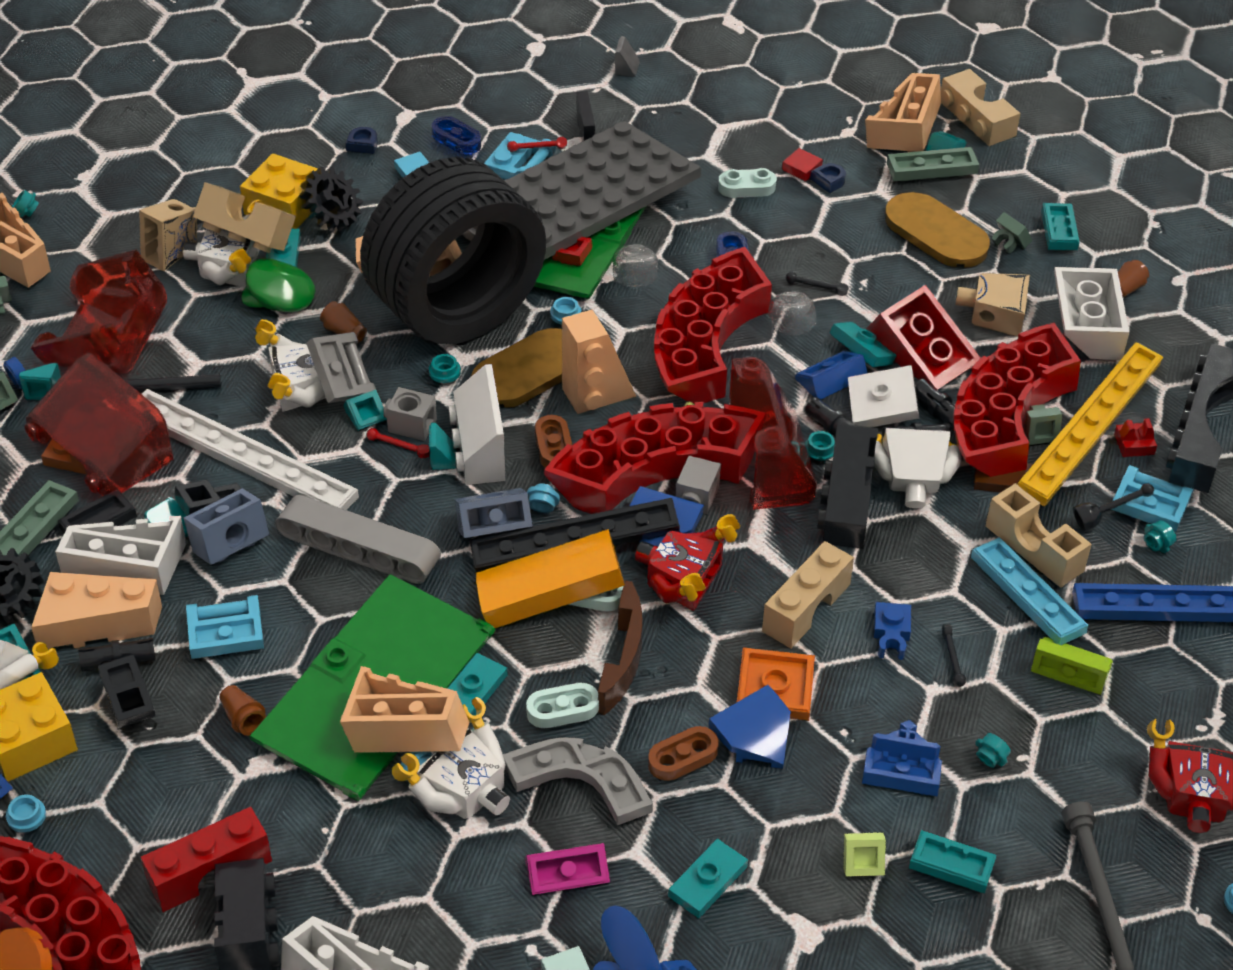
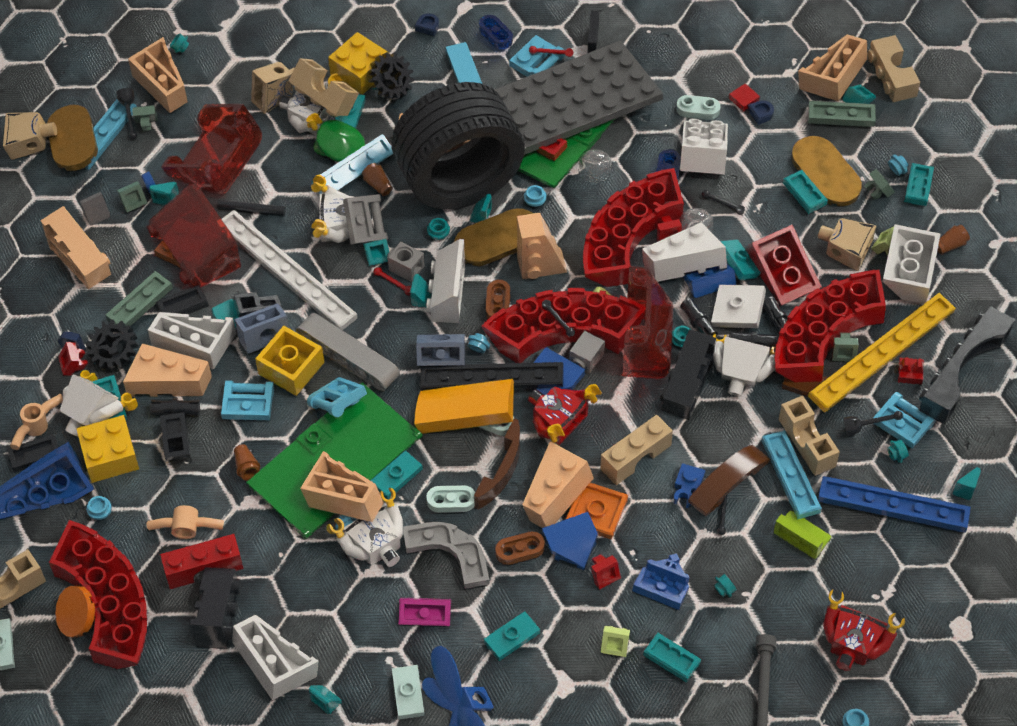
camera: 15 degrees right, 10 degrees up
(167, 809) = (185, 522): none -> light nougat piece
(277, 561) = (290, 360): none -> yellow brick
(306, 310) = (354, 164): none -> medium azure tile
(358, 596) = (341, 391): none -> medium azure plate
(498, 336) = (482, 209): none -> teal slope
(627, 430) = (546, 305): none -> black hinge
(712, 658) = (556, 485): none -> light nougat wedge
(759, 324) = (668, 227): none -> red tile
(772, 223) = (704, 146): none -> white slope
(797, 340) = (684, 252): none -> white wedge
(817, 760) = (605, 570): none -> red tile
(919, 255) = (805, 191): none -> teal plate
(944, 610) = (726, 478): none -> reddish brown slope
(1025, 208) = (898, 164): none -> medium azure plate
(1045, 295) = (883, 241): none -> yellowish green tile

